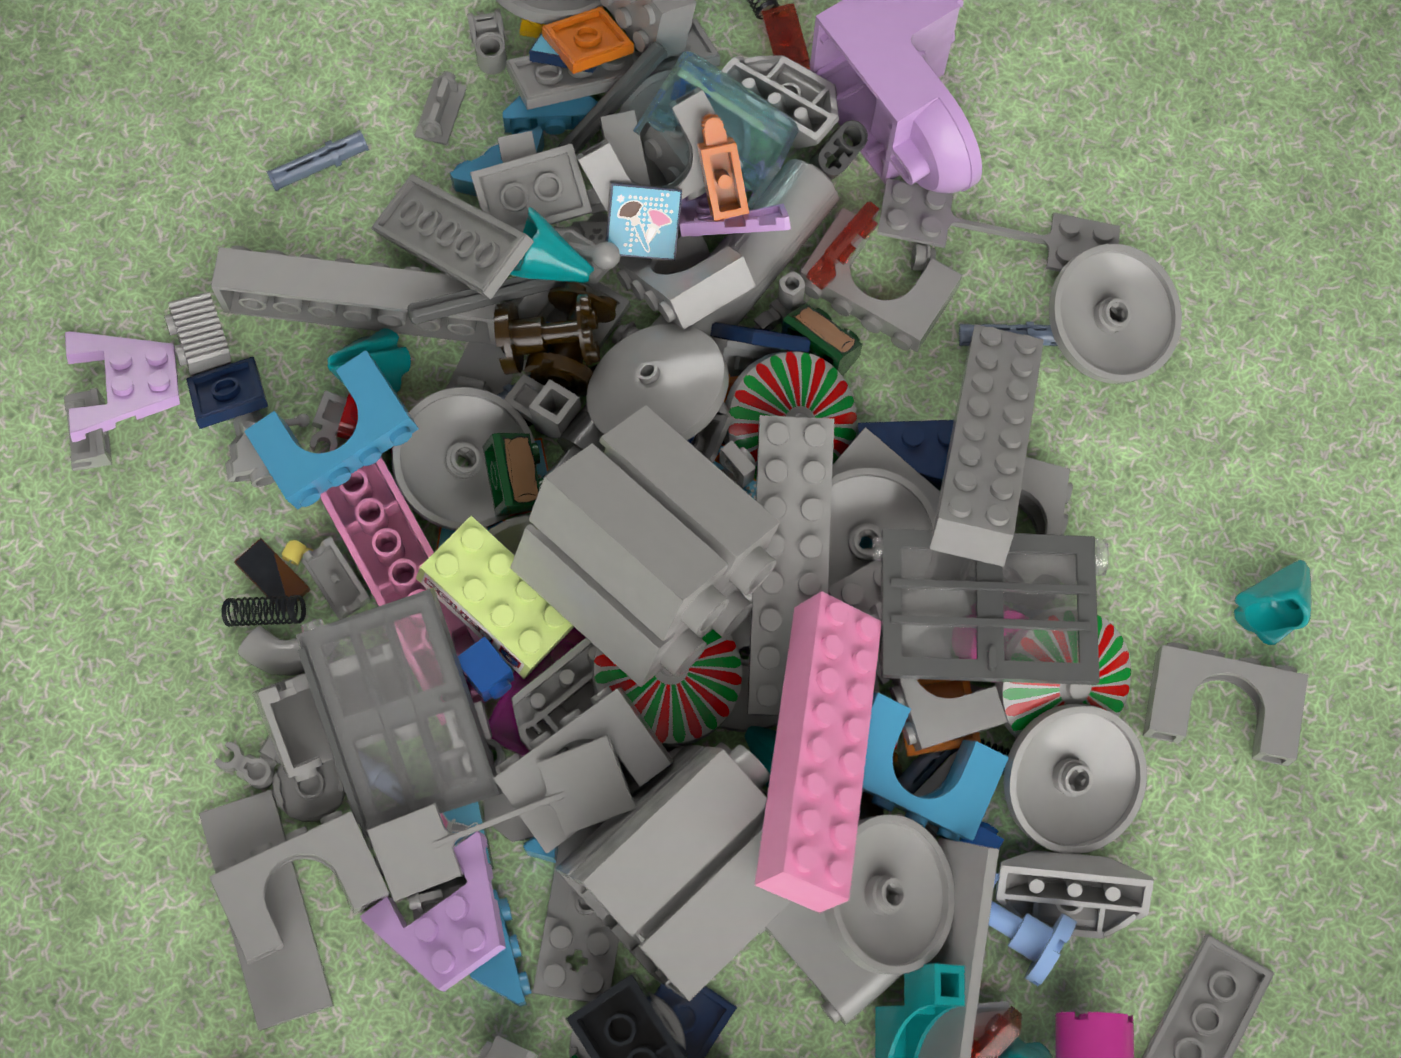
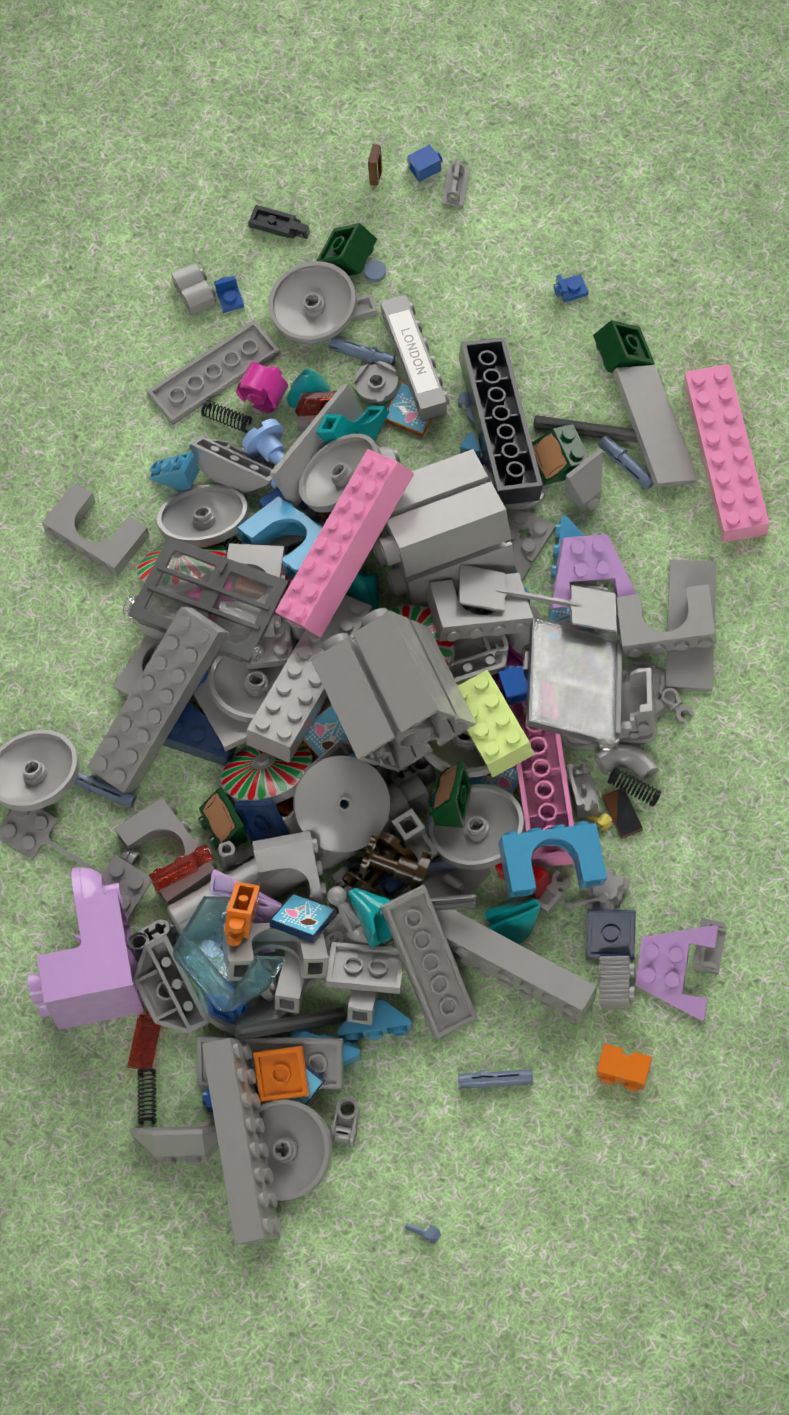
camera: 150 degrees left, 5 degrees down
(151, 229) = (623, 1068): none -> orange brick
(441, 109) = (399, 1085): light grey hinge -> none
(737, 464) = (313, 737): light grey plate -> none
(1092, 969) = (208, 404): none -> black piece
(1156, 842) = (176, 471): none -> dark azure slope
(1276, 603) = (30, 573): teal hat -> none

